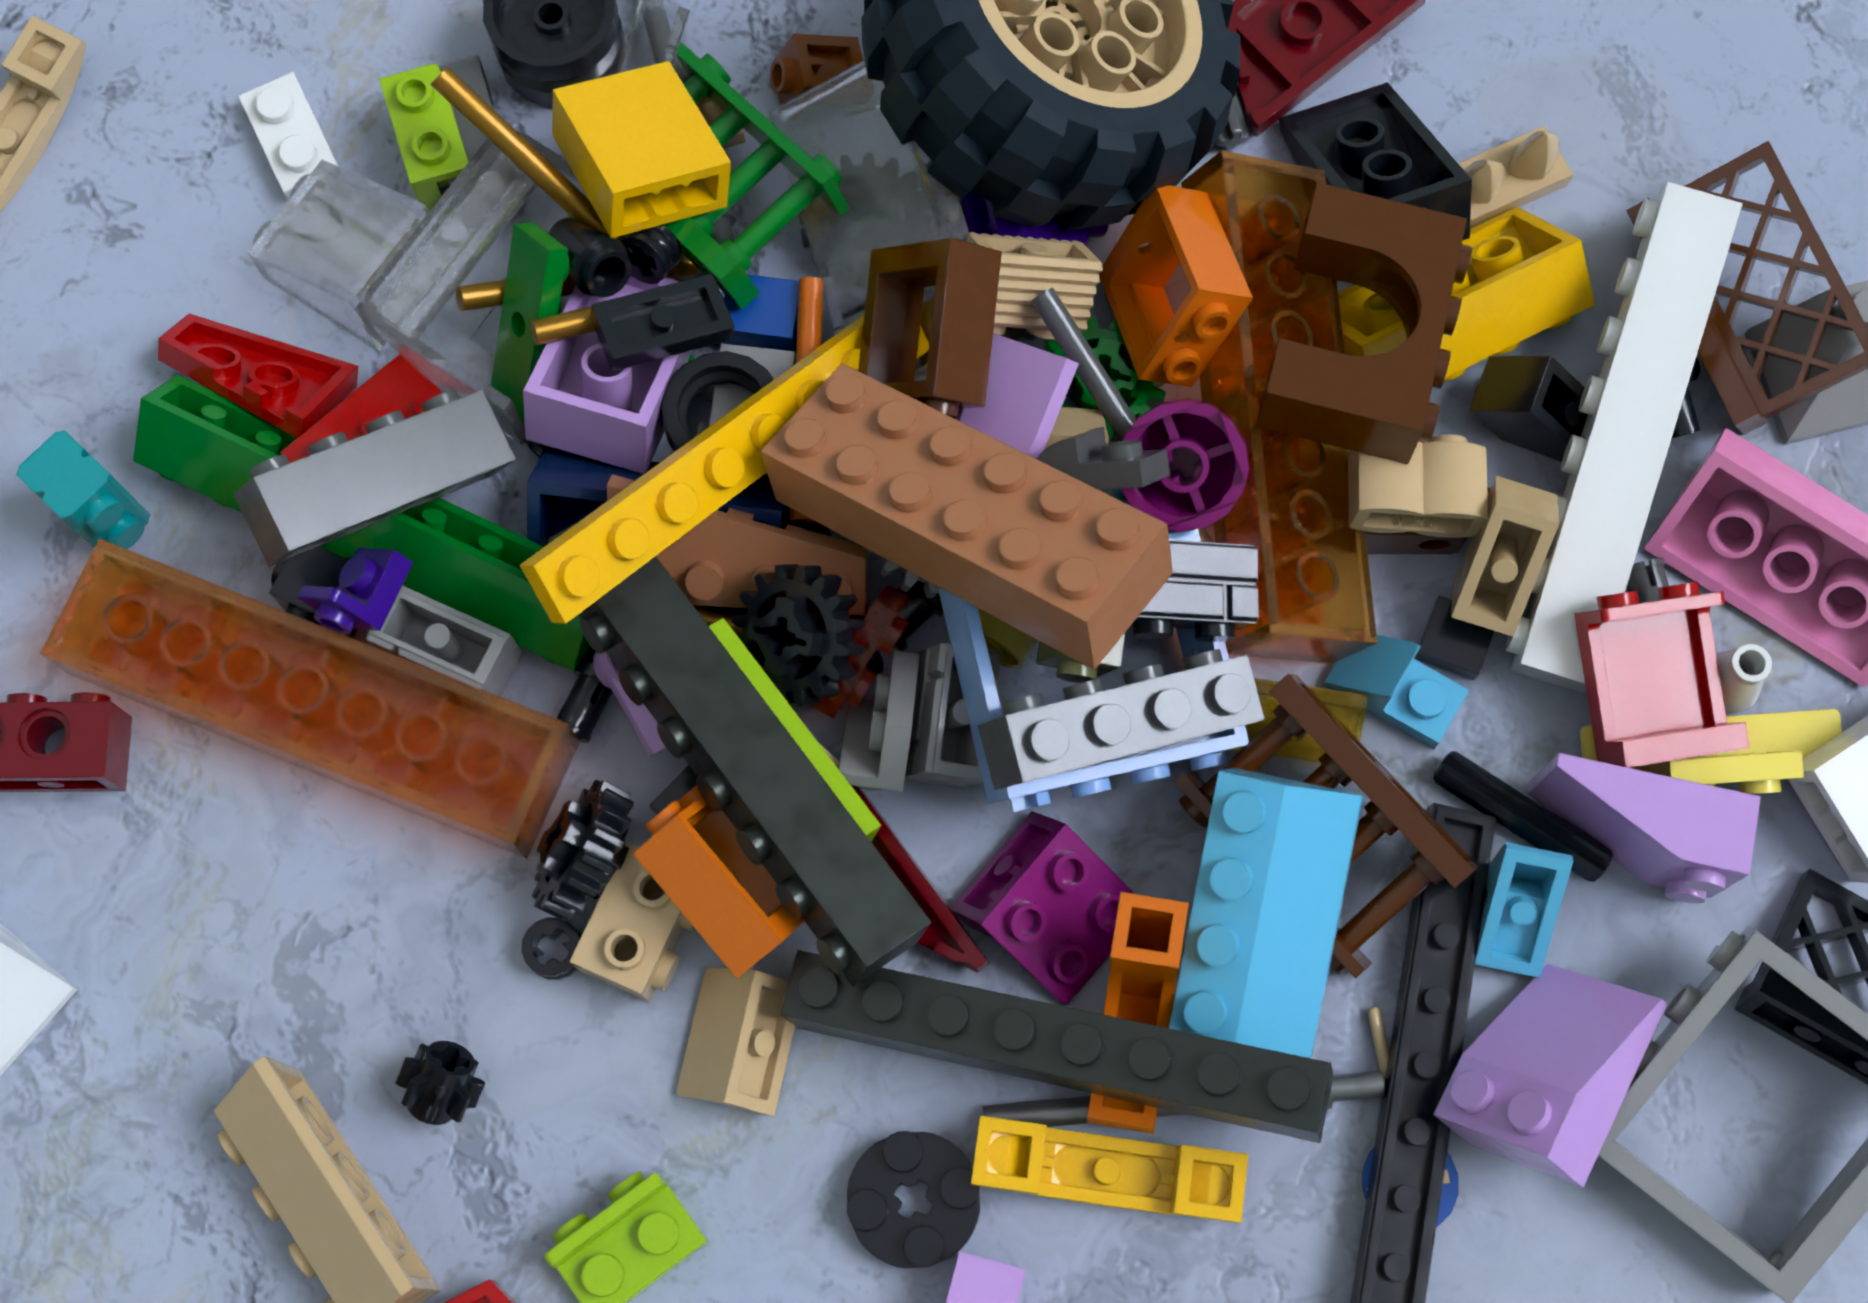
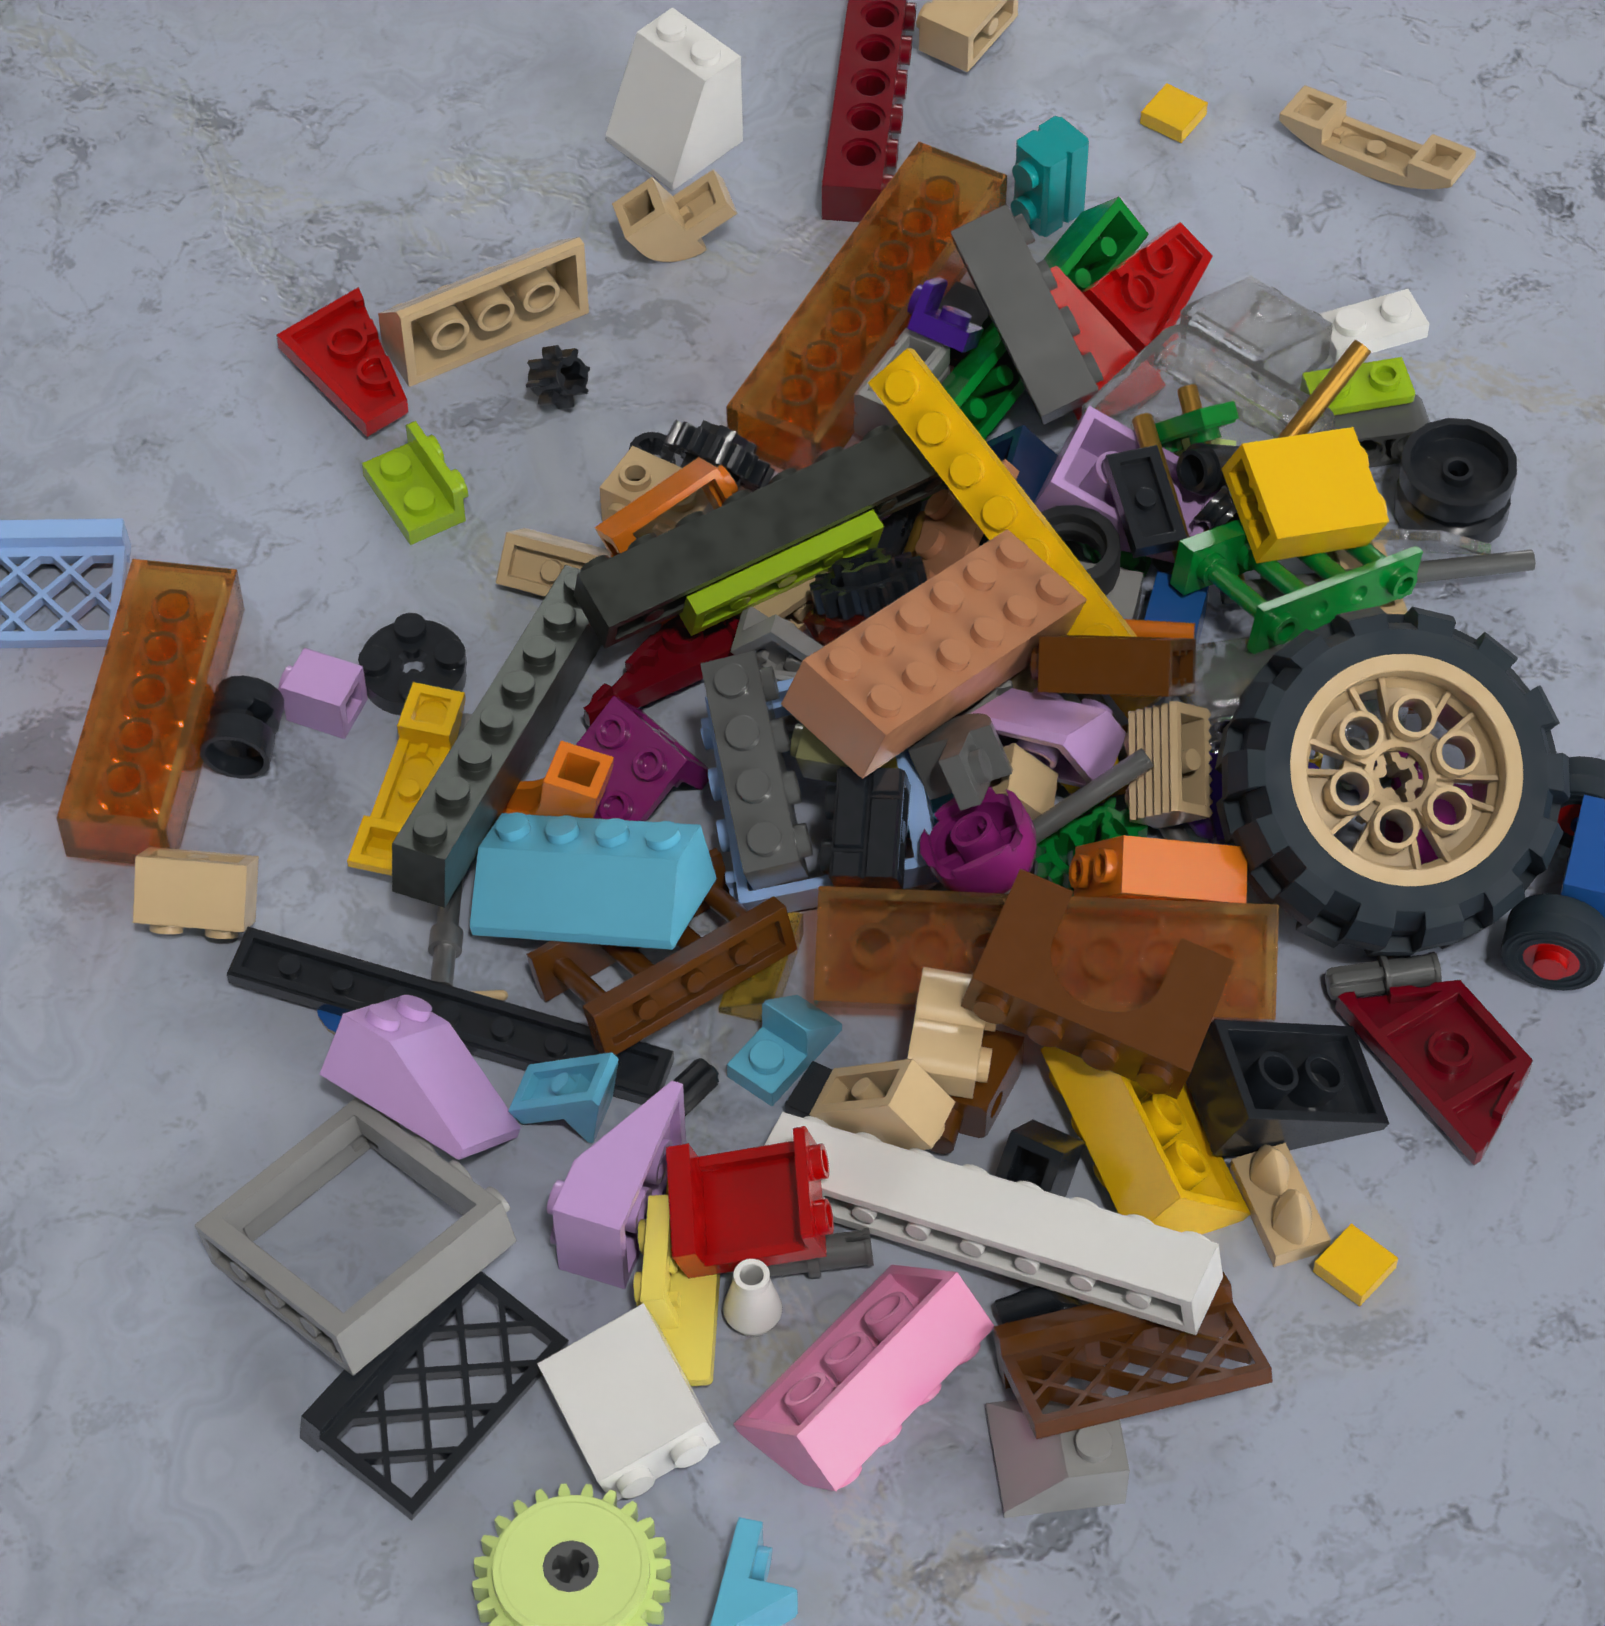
camera: 95 degrees right, 20 degrees down
(159, 963) = (673, 226): none -> tan brick
(1561, 105) = (1355, 1264): none -> yellow tile

